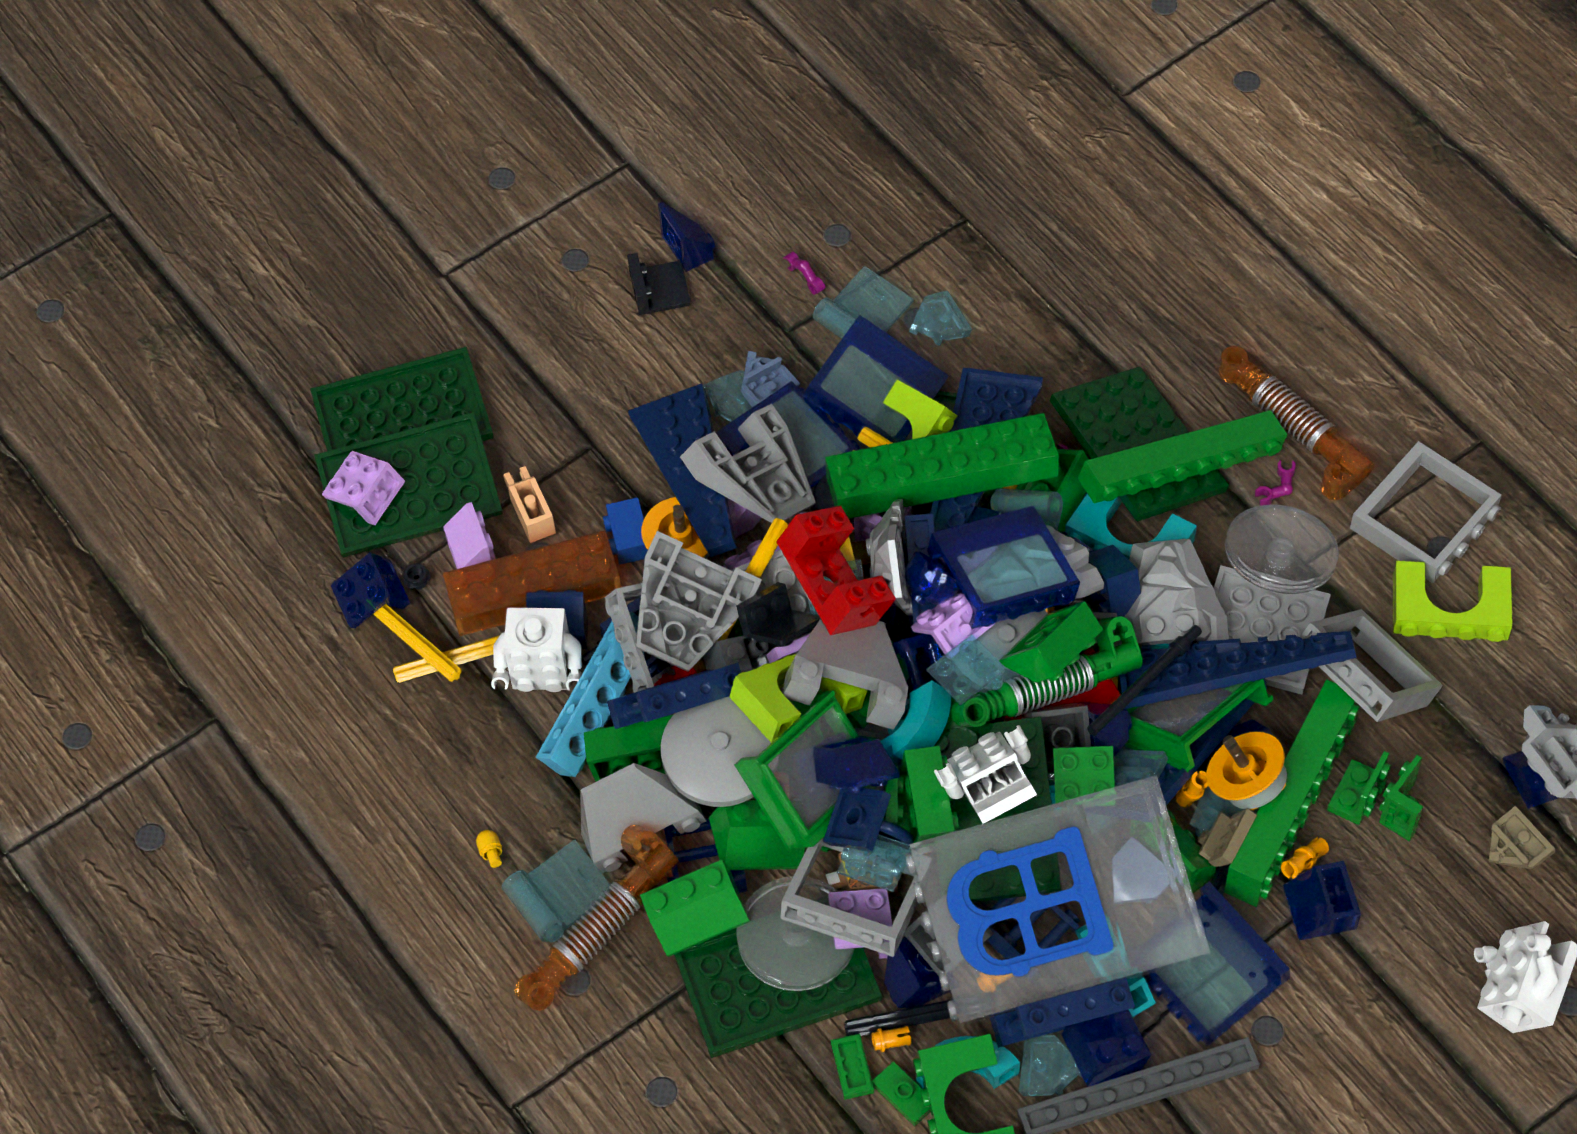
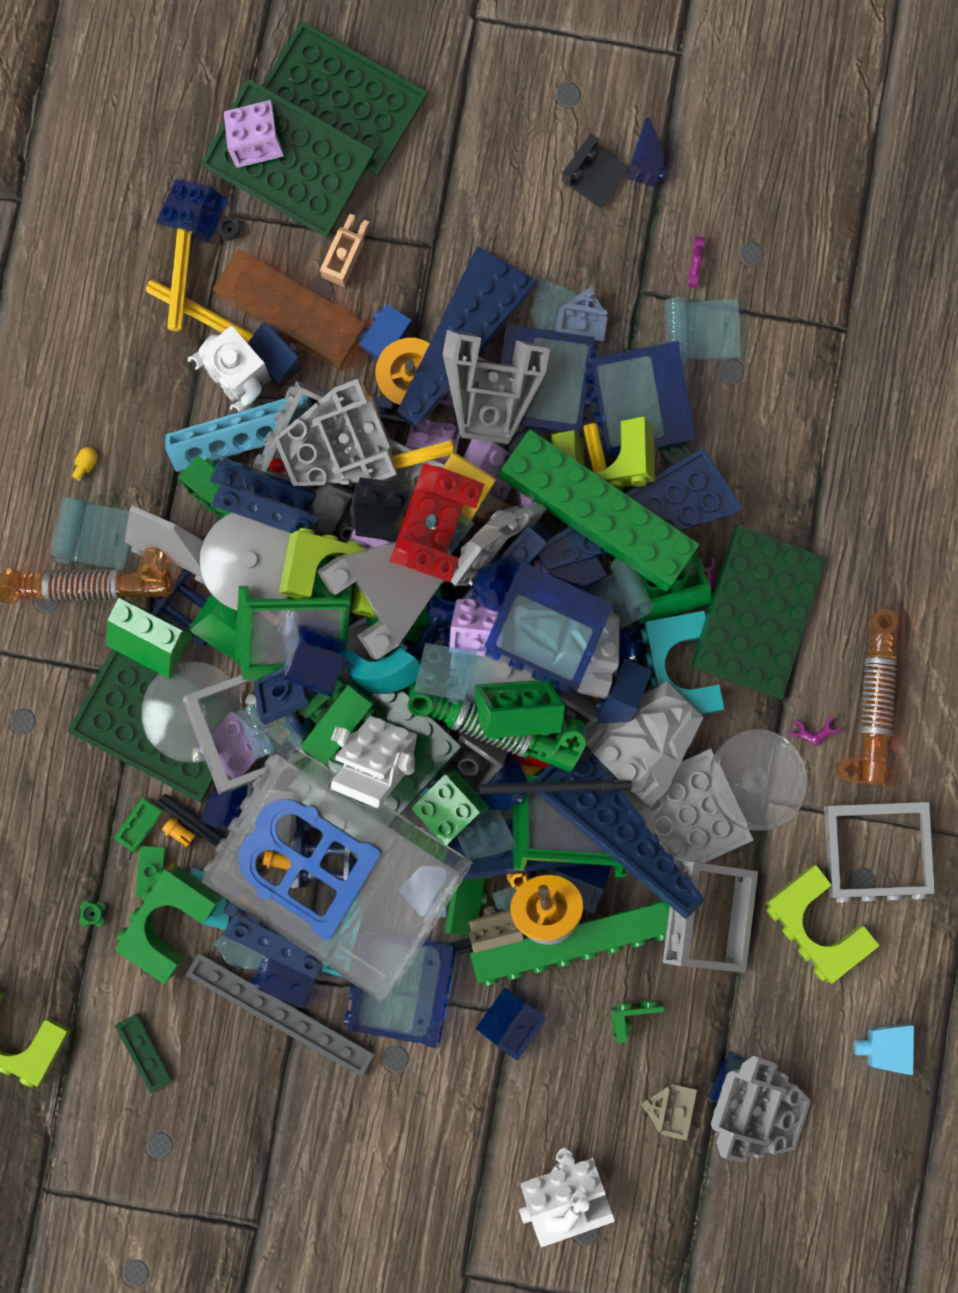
camera: 40 degrees right, 25 degrees up
(468, 538) = (279, 242): lavender slope -> none
(940, 318) = (742, 388): clear light blue slope -> none
(1182, 456) = (766, 657): green brick -> none
(1304, 857) = (534, 987): light orange pin -> none
(1359, 789) = (618, 979): green bracket -> none

